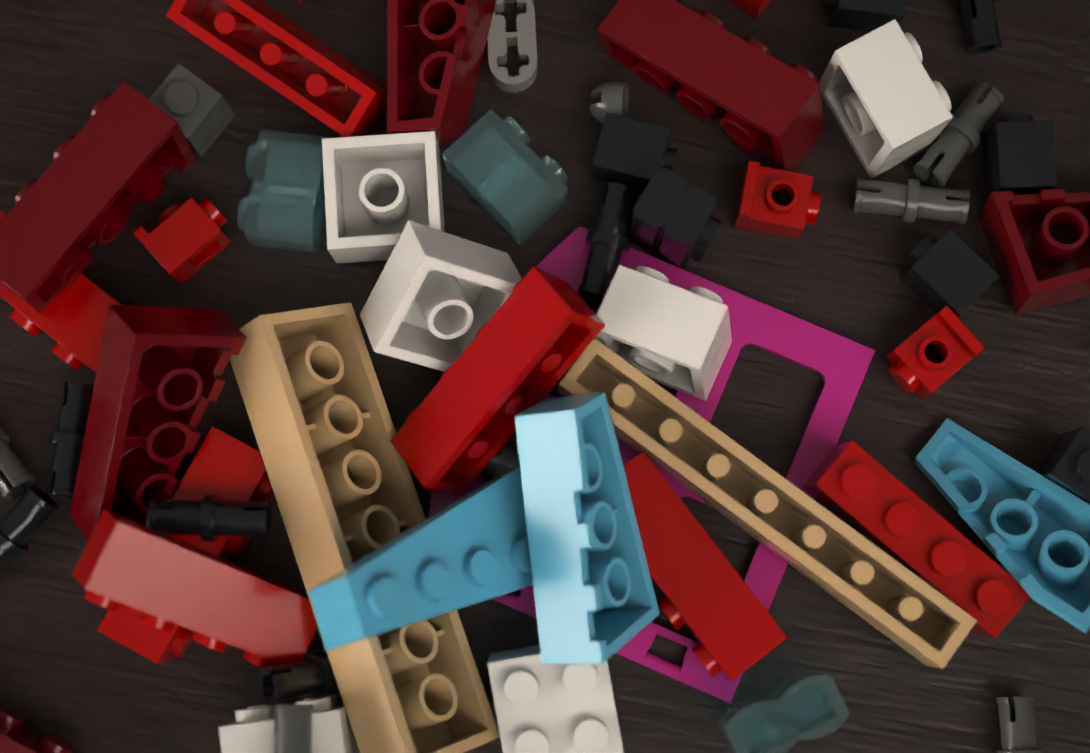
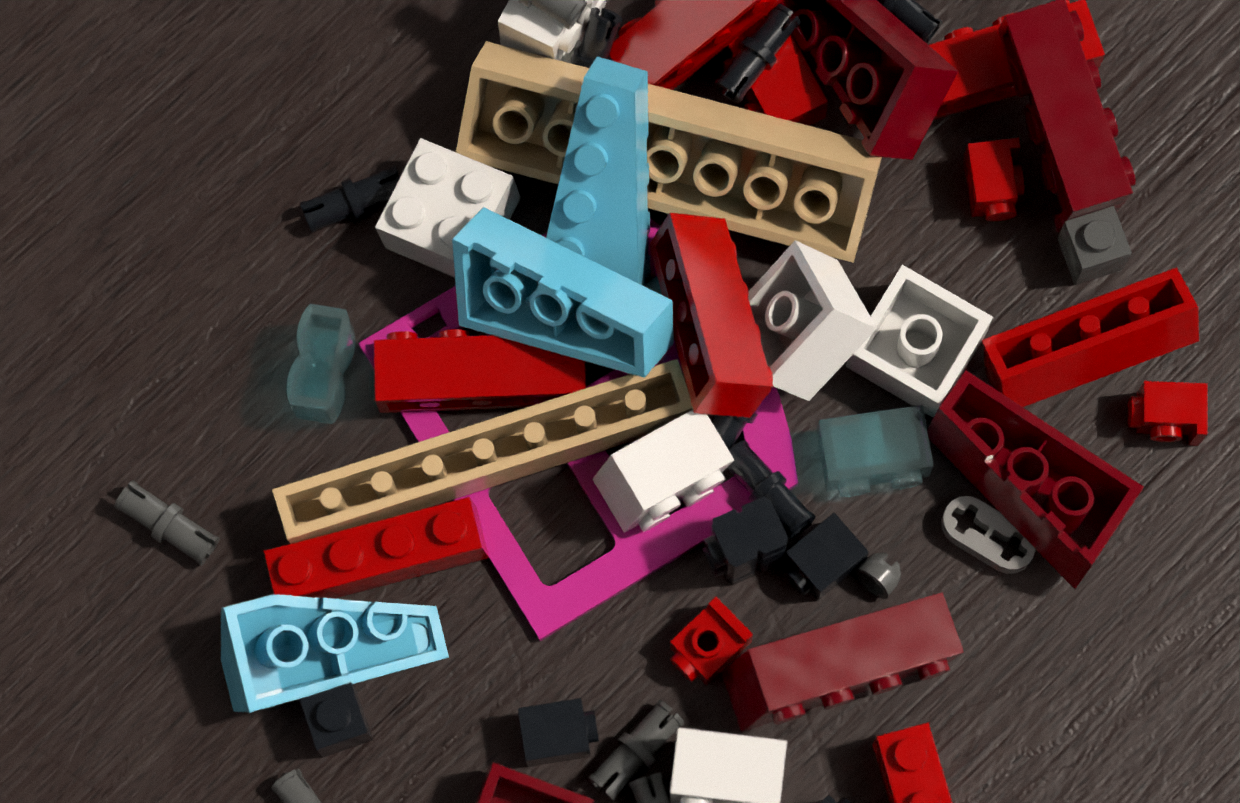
camera: 125 degrees right, 5 degrees down
(285, 193) = (979, 273): clear light blue brick -> none
(949, 338) = (504, 694): red brick -> none

